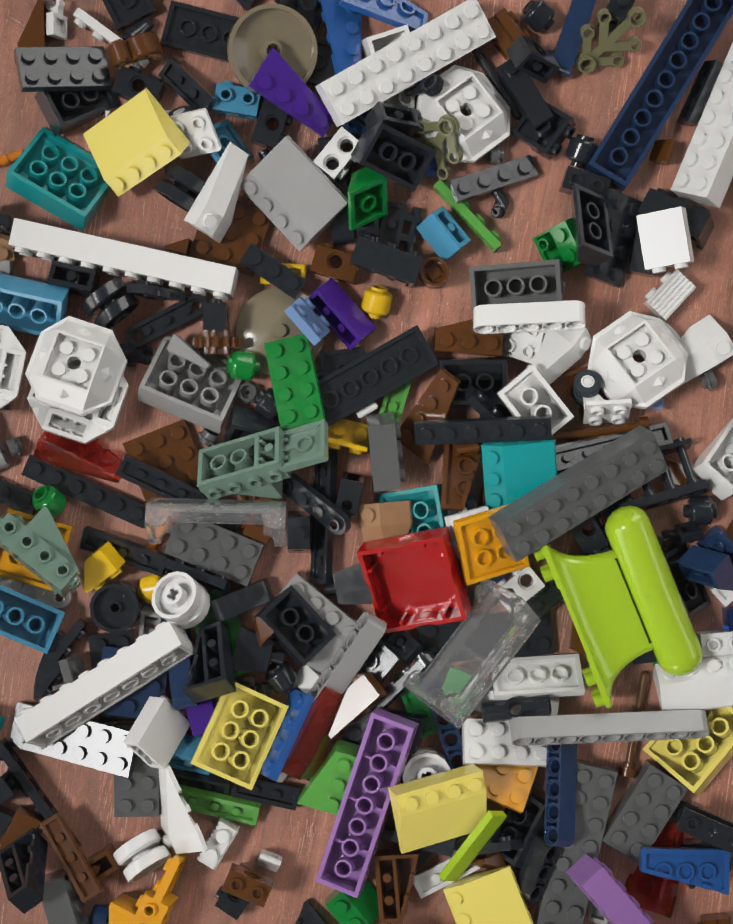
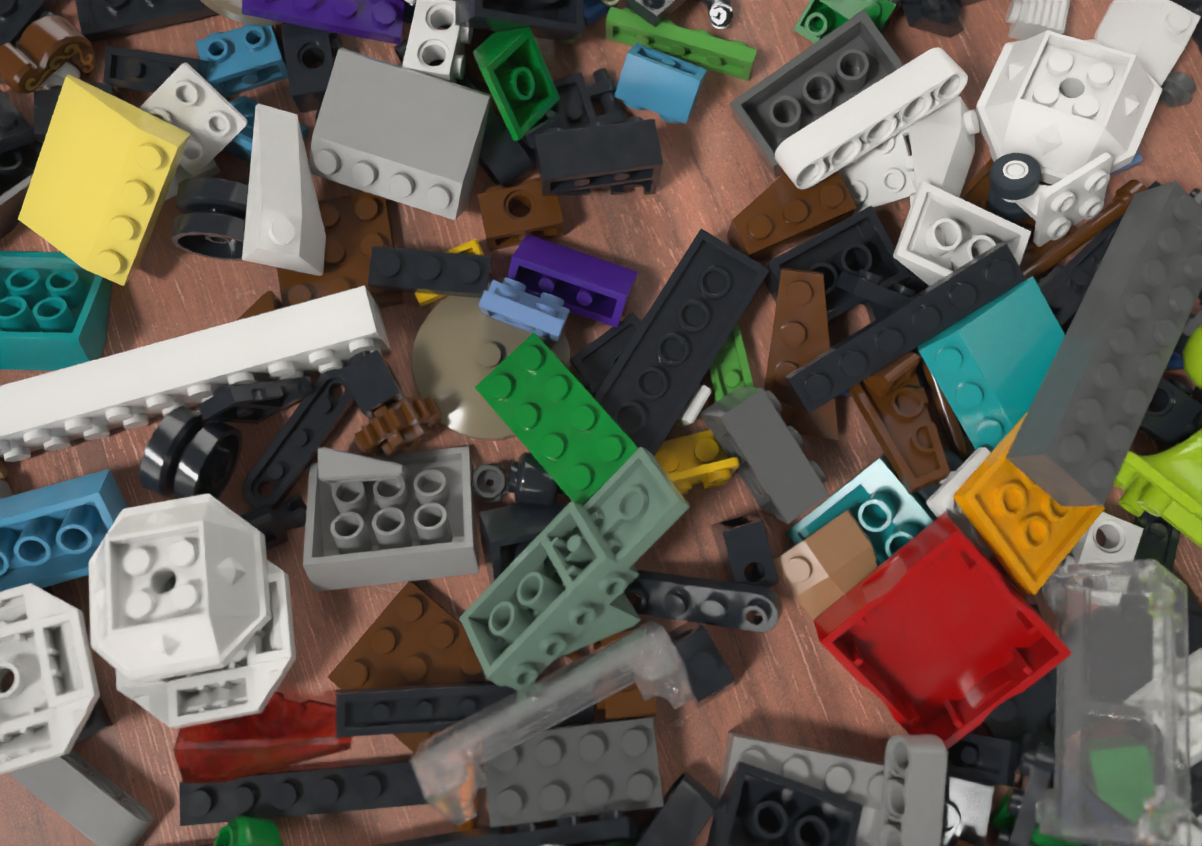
camera: 25 degrees left, 10 degrees down
(14, 446) = (146, 784): dark grey plate -> none
(78, 279) = (109, 446): black brick -> none
(208, 437) = (465, 588): dark grey plate -> none
(242, 365) = (459, 441): green head -> none
(321, 536) = (739, 648): black plate -> none
(349, 586) = (833, 706): black torso -> none
(376, 301) = (616, 235): yellow head -> none
(434, 273) = (681, 145): reddish brown wheel -> none

